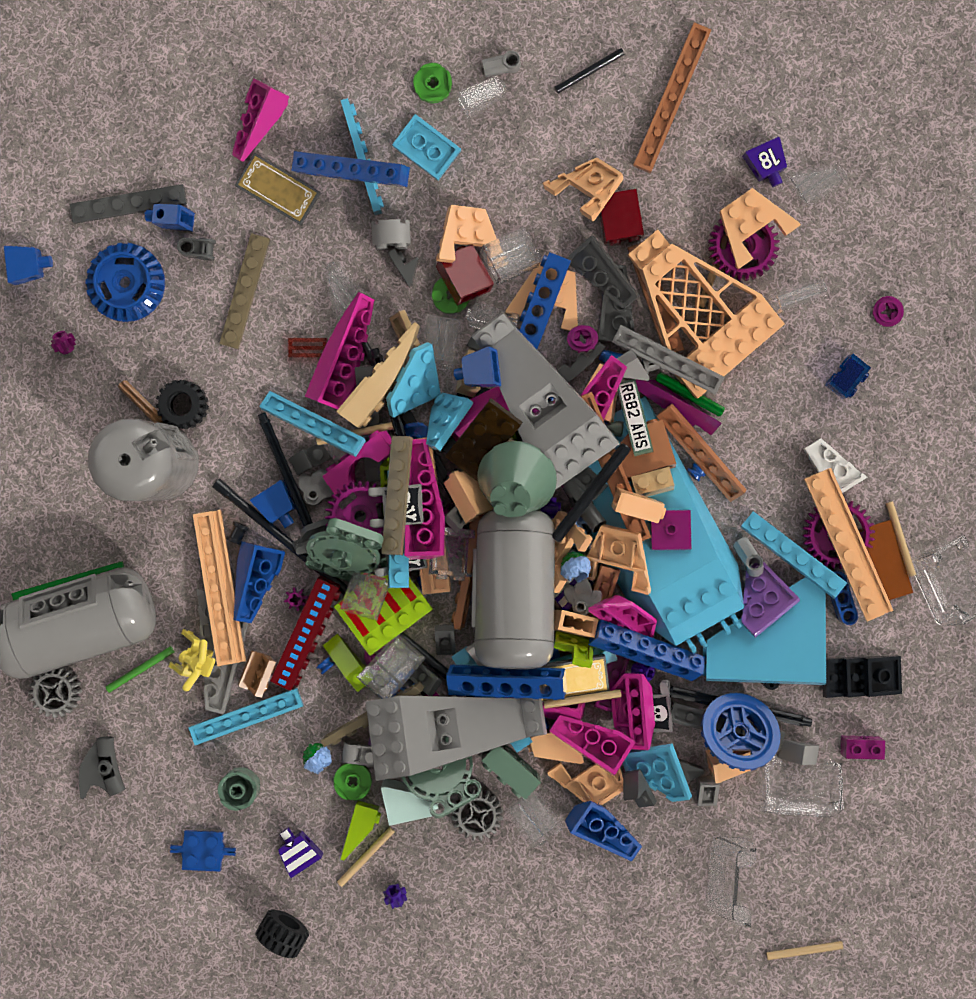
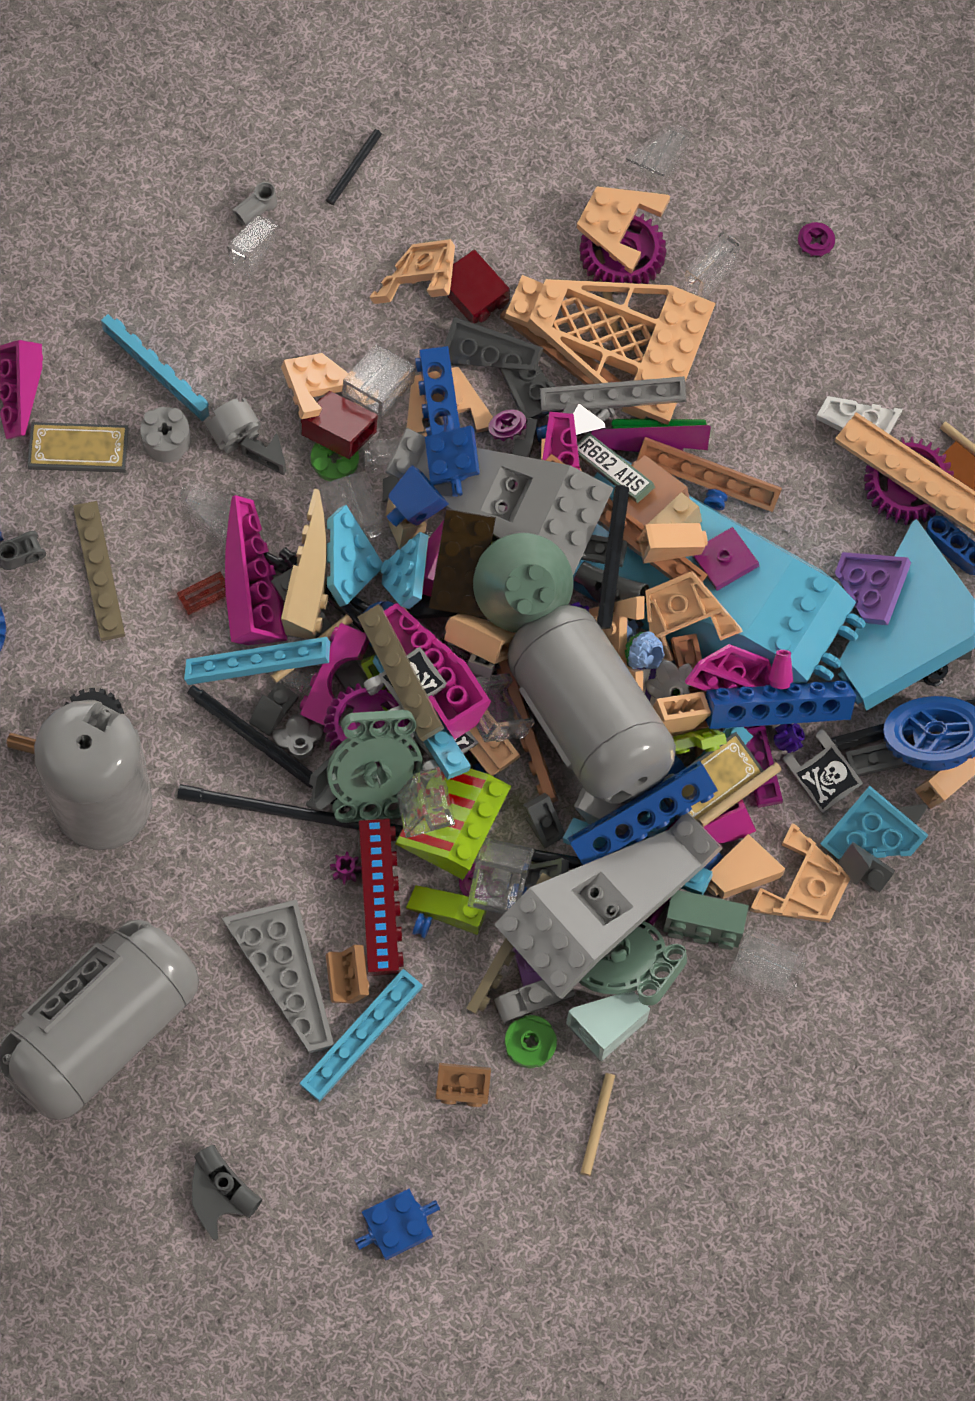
camera: 30 degrees left, 20 degrees down
(48, 687) = (125, 1129): light grey gear -> none
(139, 669) = (202, 1051): bright green piece -> none
(195, 660) = (265, 987): light yellow piece -> none
(219, 587) = (249, 899): light nougat plate -> none
(228, 788) = (414, 1114): sand green brick -> none
(237, 533) = (235, 831): black bush -> none
(254, 574) = (281, 859): blue wedge -> none
(275, 504) = (262, 776): blue torso -> none
(282, 933) = (550, 1258): black tyre -> none
(292, 786) = (463, 1084): none -> medium nougat bracket
(298, 852) = (513, 1159): dark purple torso -> none
(316, 757) = (473, 1034): light blue piece -> none
(336, 204) = (161, 422): none -> light grey brick
(350, 169) = (152, 378): blue brick -> none
(362, 823) = (569, 1078): lime slope -> none
(395, 896) = (659, 1146): dark purple gear -> none
(401, 324) = (300, 509): tan tile -> none
(426, 147) = (221, 324): medium azure plate -> none
(440, 75) = (194, 247): bright green plate -> none
(483, 810) = (687, 1017): light grey gear -> none
(522, 353) = (452, 455): none -> blue plate
(598, 744) = (787, 837): dark pink wedge -> none
(601, 828) = (845, 931): blue wedge -> none
(634, 709) = (804, 778): dark pink wedge -> none
(659, 635) = (781, 670): none -> dark pink cone
(672, 97) = (458, 150): nougat plate -> none
(707, 791) = (944, 829): light grey slope -> none
(748, 556) = (828, 553): light grey piece -> none
(767, 161) = (596, 159): dark purple torso -> none
(793, 555) = (874, 525): medium azure plate -> none
(851, 374) = (816, 321): clear blue brick -> none

